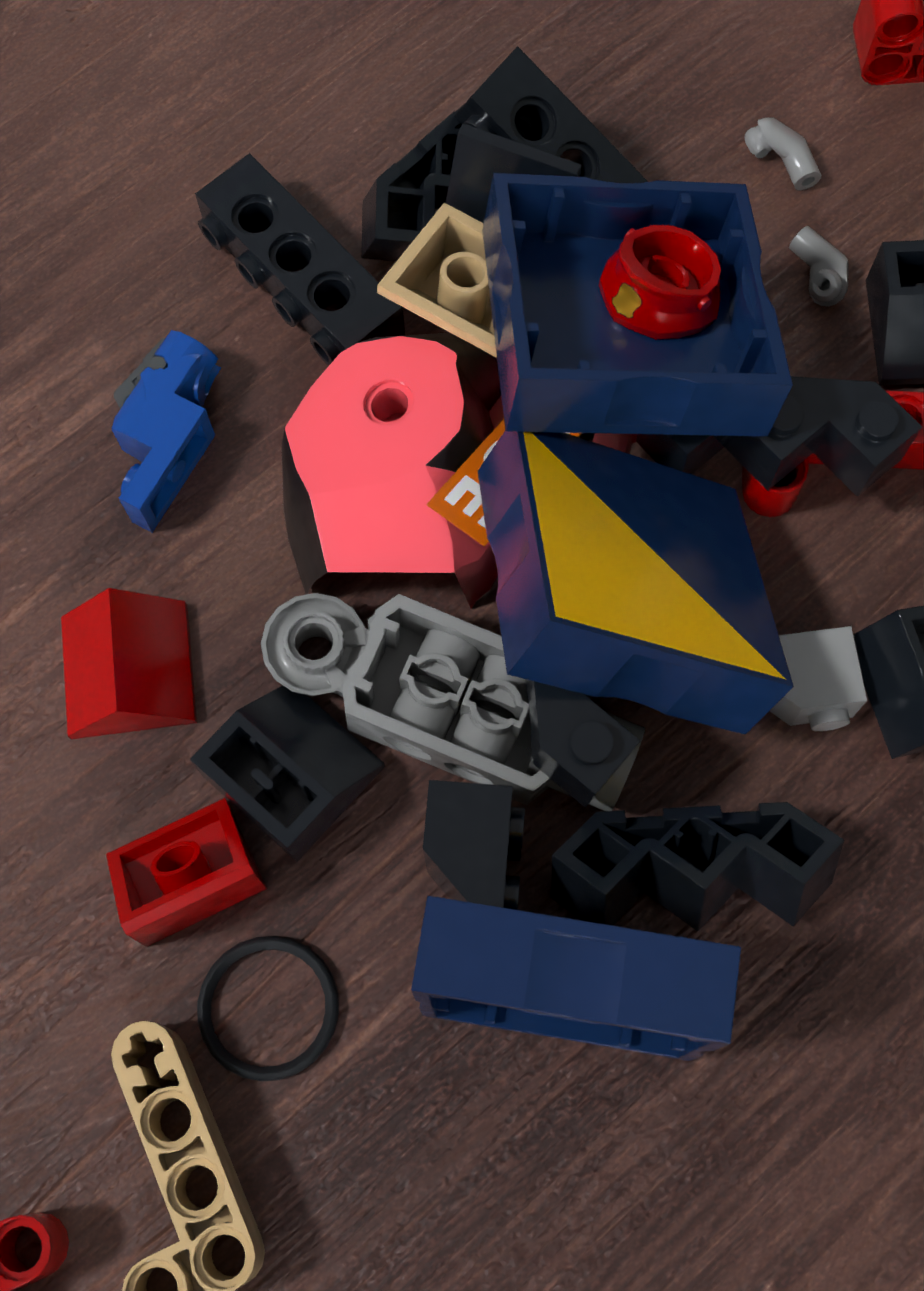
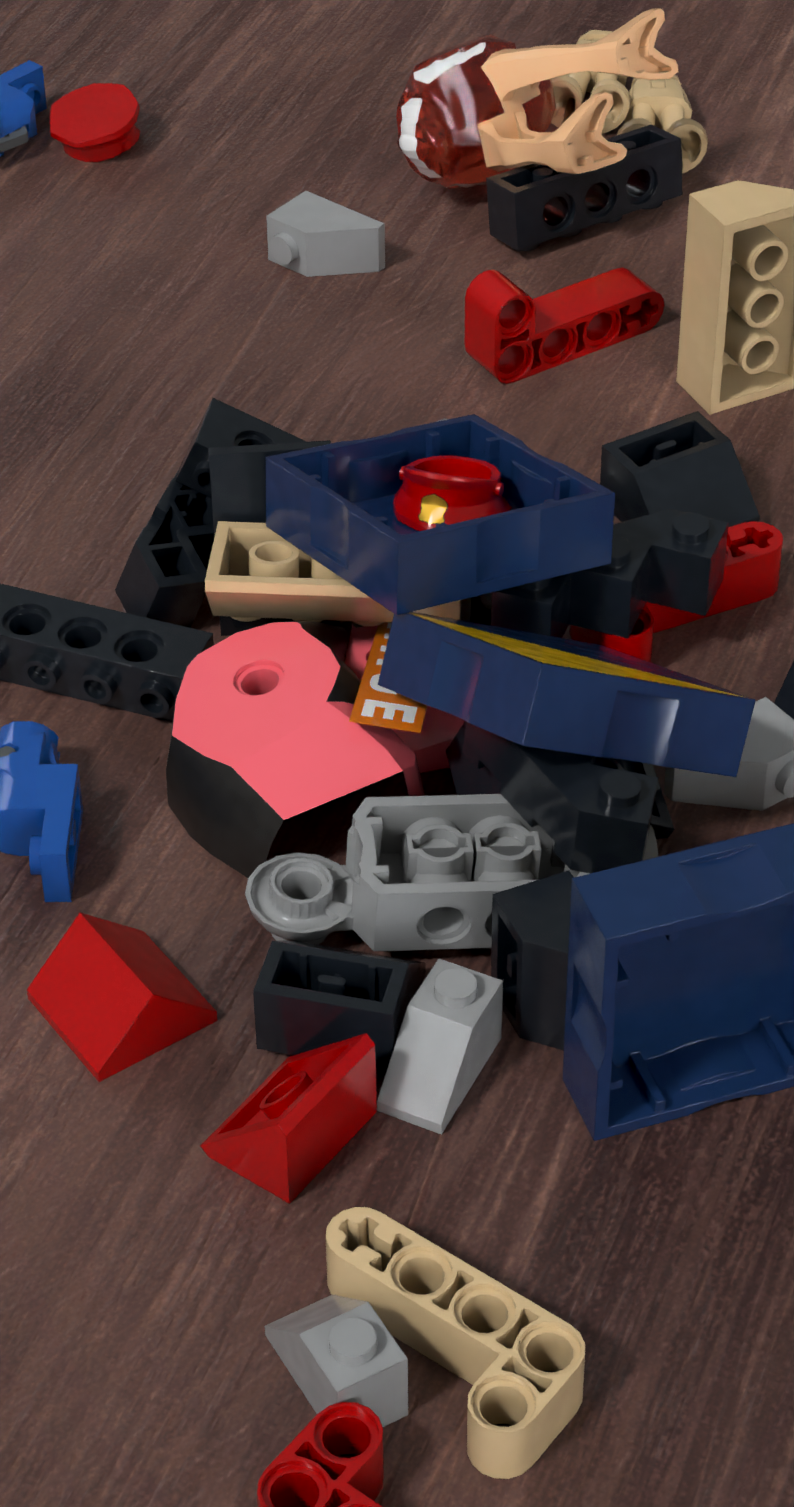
camera: 30 degrees left, 30 degrees down
(75, 1144) = (343, 1354): none -> light grey slope
(324, 1036) = (462, 1139): black tyre -> none
(339, 868) = (442, 1045): none -> light grey slope

